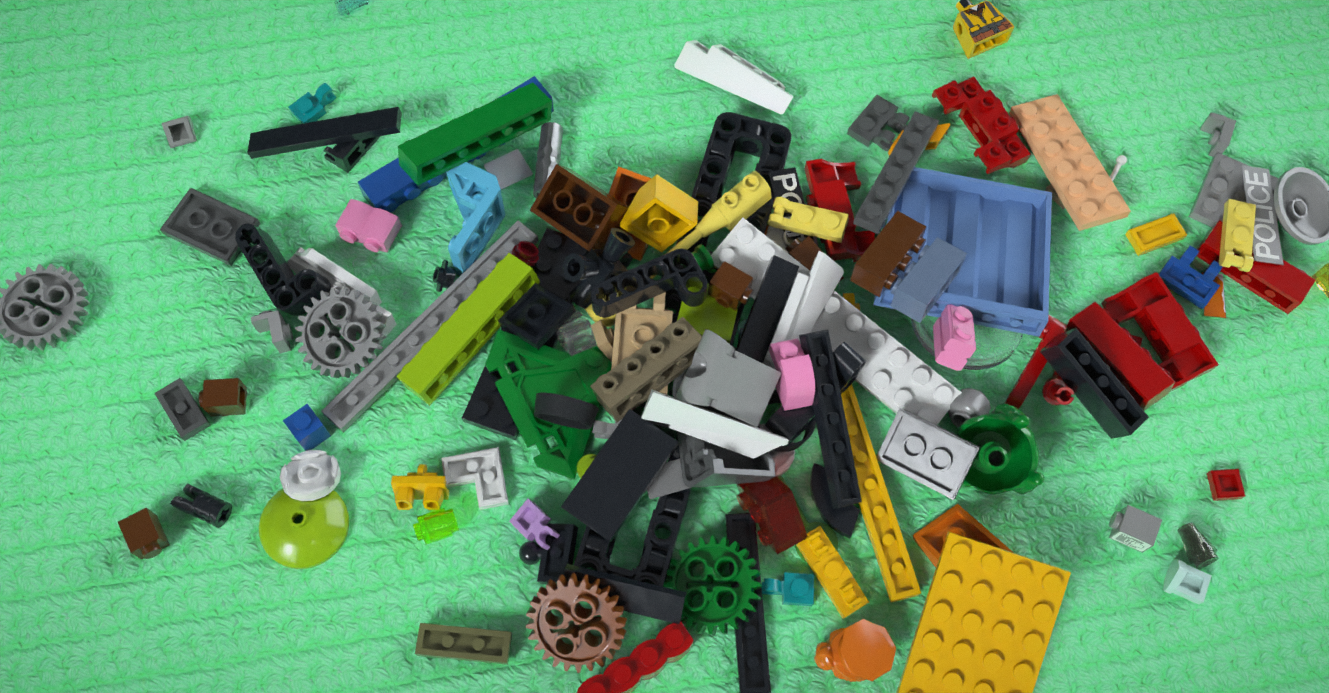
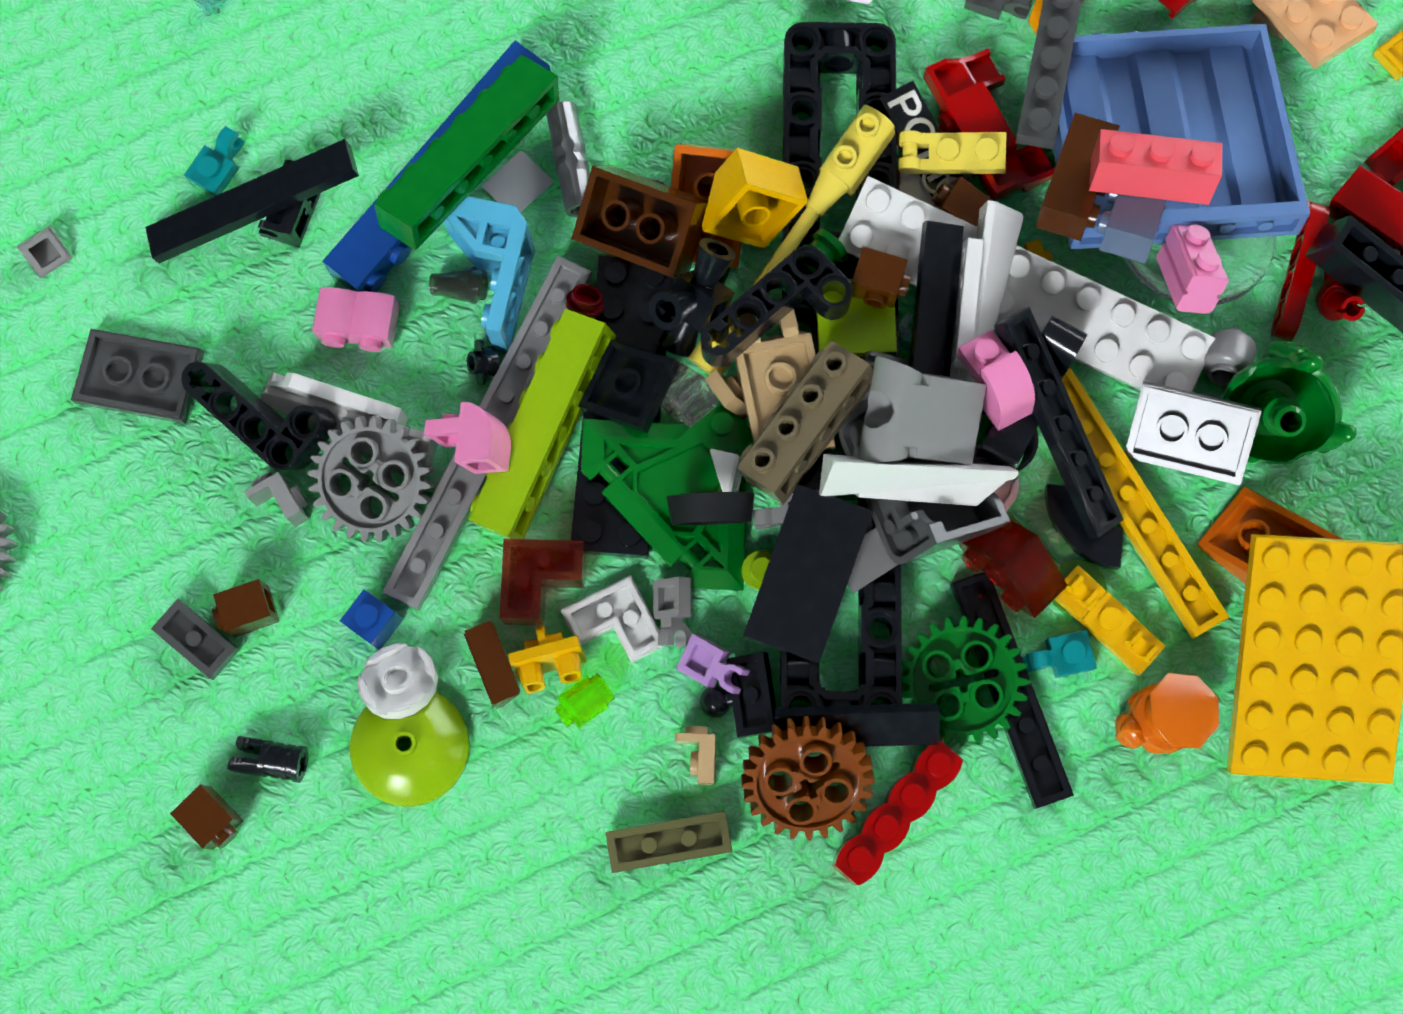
camera: 10 degrees left, 10 degrees up
(379, 481) = (492, 664): none -> reddish brown slope
(418, 322) = (479, 438): none -> bright pink brick
(430, 422) = (532, 567): none -> clear red brick
(445, 222) = (461, 284): none -> clear smoke cone
(508, 591) = (702, 761): none -> tan bracket
(520, 474) = (671, 605): none -> light grey plate
(584, 390) = (726, 470): none -> white slope
(941, 256) = (1155, 166): none -> coral brick

